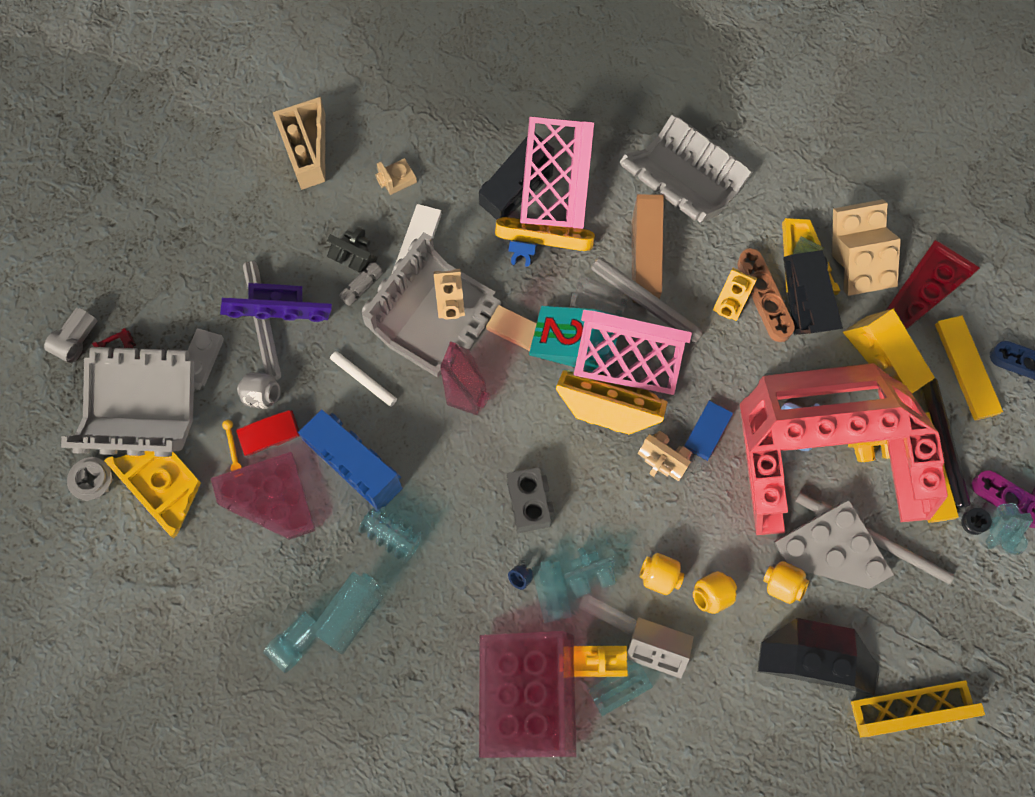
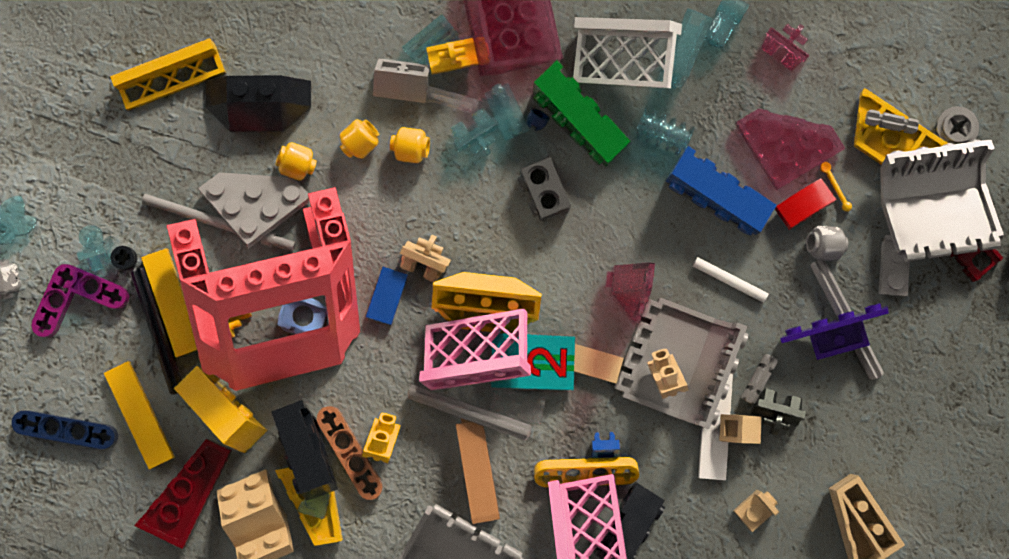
camera: 165 degrees right, 15 degrees up
(154, 492) = (891, 121): none -> light grey axle
(230, 590) = (795, 54): none -> clear pink hips
(392, 239) = (740, 428): none -> tan brick
(397, 640) = (625, 28): none -> white fence
(476, 568) = (579, 115): none -> green wedge

